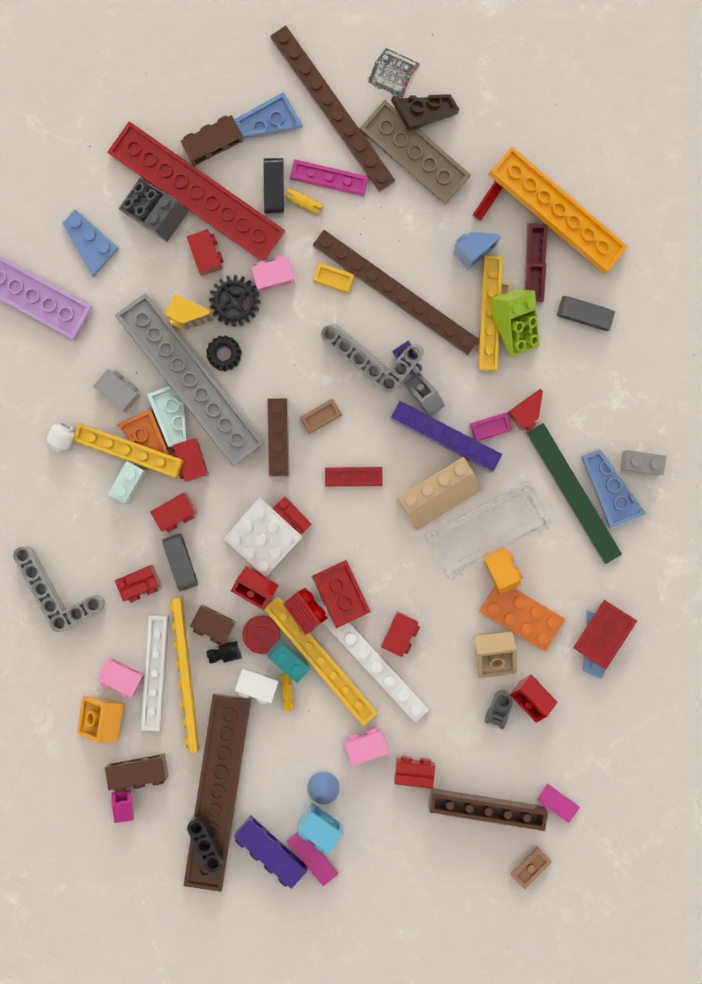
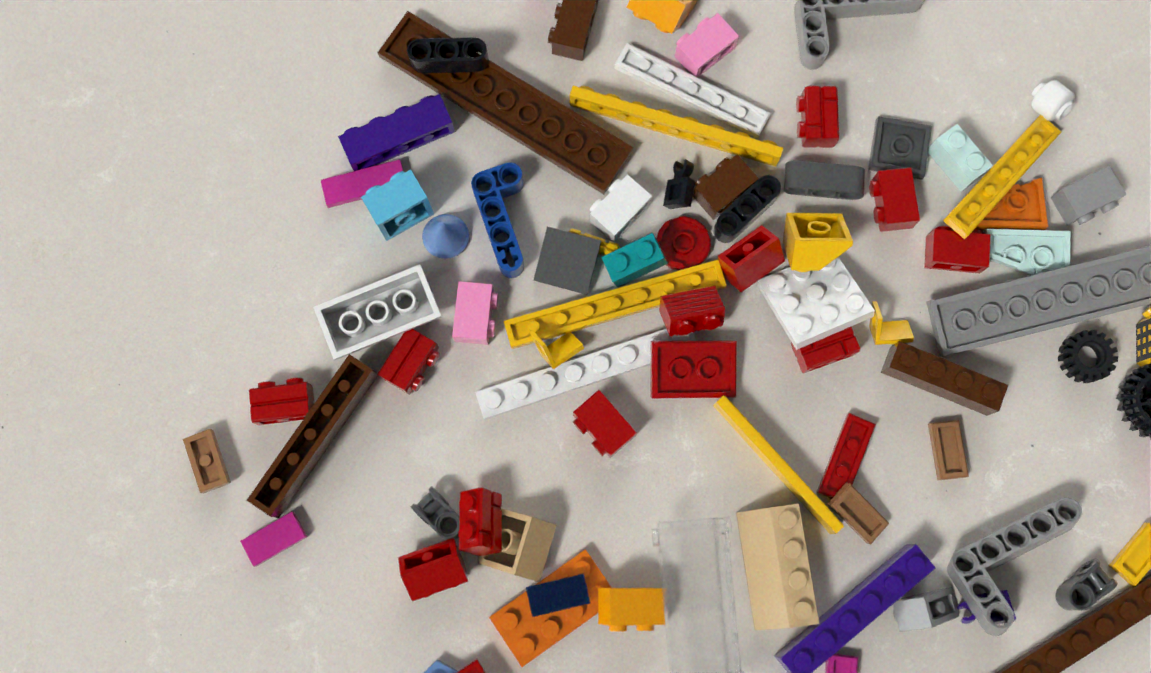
camera: 115 degrees right, 10 degrees down
(134, 522) = (899, 146): none -> dark grey tile
(211, 604) = (753, 198): none -> black beam
(225, 553) = (815, 239): none -> yellow slope
(262, 481) = (889, 331): none -> yellow bracket
(300, 756) = (501, 223): none -> blue beam
(306, 703) = (567, 260): none -> dark grey tile
(365, 682) = (559, 350): none -> yellow bracket
(367, 304) = (1090, 585): none -> dark grey piece
(377, 517) = (778, 465): none -> yellow tile
(385, 456) = (858, 513): none -> medium nougat tile
(394, 806) = (377, 312): none -> white slope
(476, 840) = (280, 402): none -> red brick
(493, 683) = (480, 522): none -> red brick
(515, 616) = (558, 595): none -> clear blue tile

